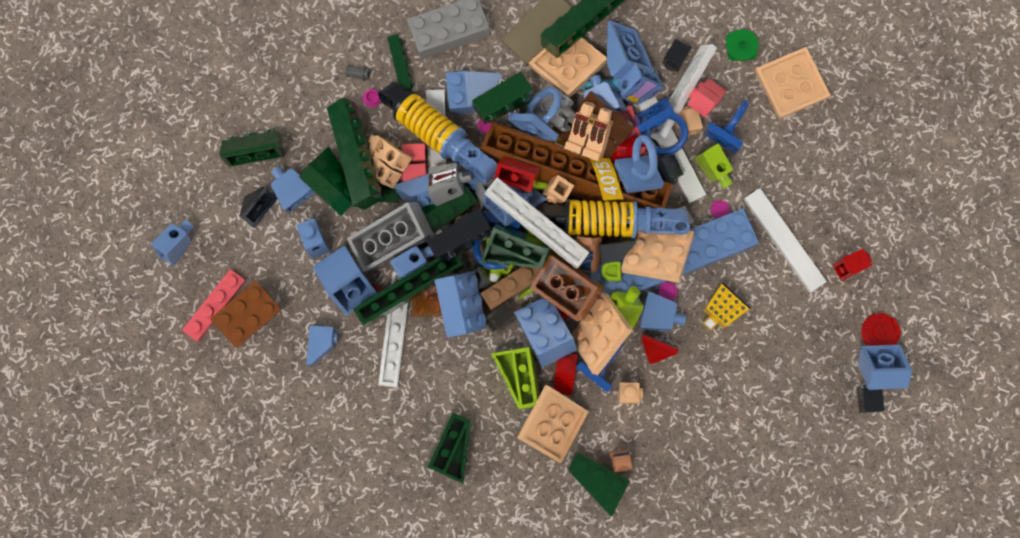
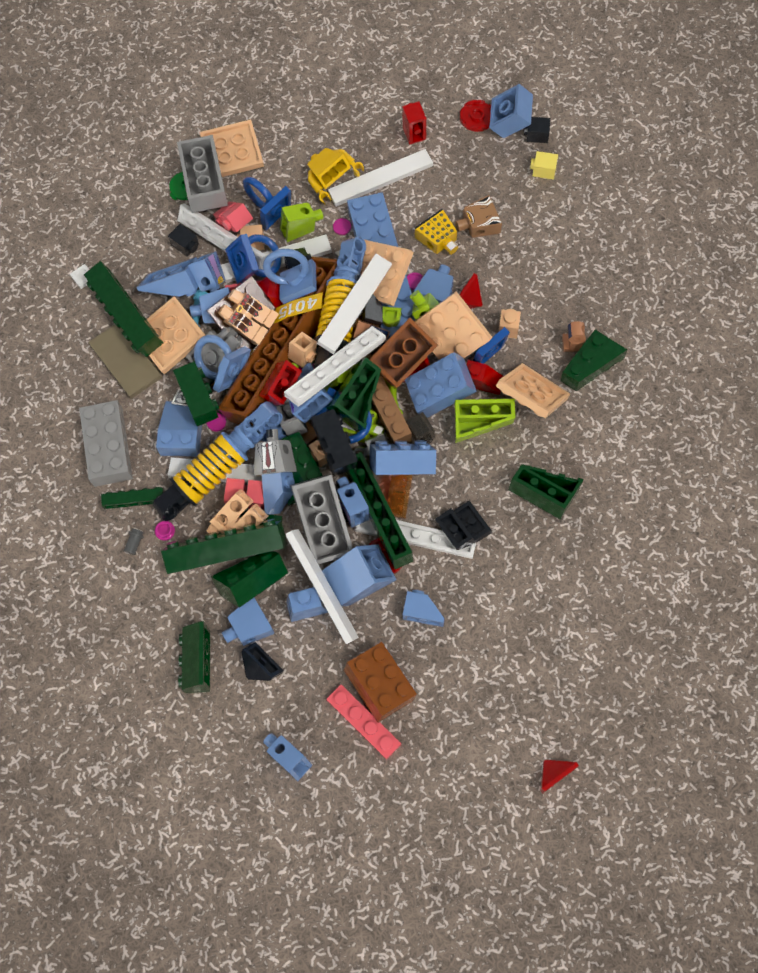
camera: 80 degrees left, 10 degrees down
(183, 483) = (554, 771): none -> red slope
(325, 247) = (322, 586): none -> white tile
(407, 372) = (463, 525): none -> black slope
(608, 231) = (354, 304): none -> white tile
(748, 57) = (202, 173): none -> light grey brick
(748, 349) = (480, 218): none -> medium nougat torso
(781, 183) = (328, 167): none -> yellow torso
(826, 410) = (544, 165): none -> light yellow brick

